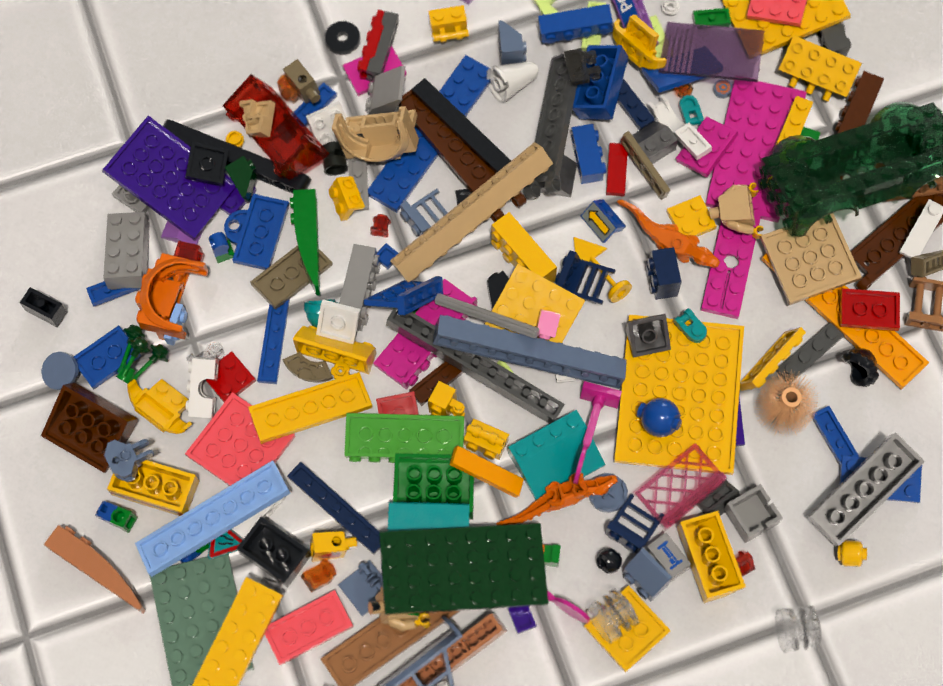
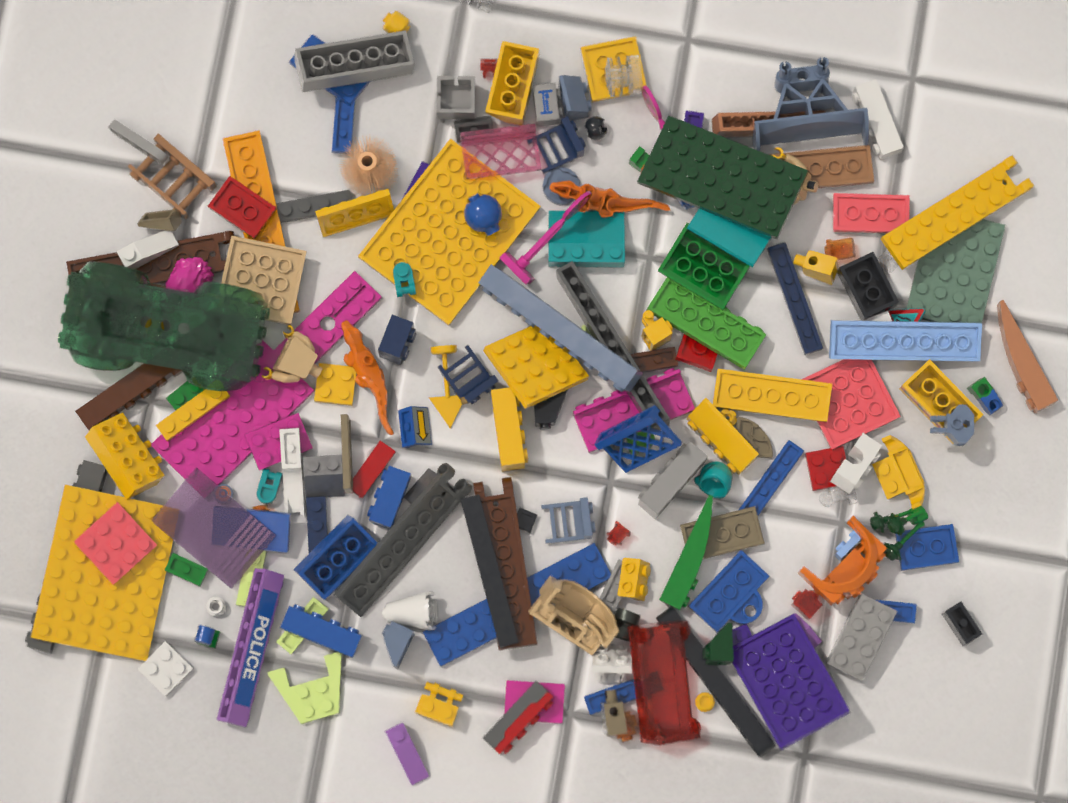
camera: 155 degrees left, 10 degrees up
(59, 370) = (974, 555): sand blue tile -> none
(86, 423) = (971, 489): reddish brown slope -> none
(206, 163) = (747, 675): black plate -> none
(221, 247) = (773, 592): blue leg -> none
(258, 117) = (674, 704): tan slope -> none
(338, 29) = (551, 744): black tile -> none
(338, 321) = (710, 447): white plate -> none
(362, 586) = (807, 220): sand blue hinge -> none
(385, 91) = (542, 656): light grey slope -> none
(386, 254) = (627, 504): blue tile -> none
(471, 212) = (532, 489): tan brick -> none
(485, 439) = (636, 284): yellow brick -> none
(486, 315) = (578, 380): light grey axle -> none
(486, 471) = (655, 251): light orange tile -> none
(547, 324) = (530, 342): bright pink brick -> none
(576, 66) = (353, 574): clear smoke plate -> none
(638, 42) = (278, 573): yellow plate -> none
(648, 335) = (446, 290): flat silver slope -> none
(863, 366) = (282, 165): black hair -> none
(870, 226) = (190, 273): none -> dark pink piece

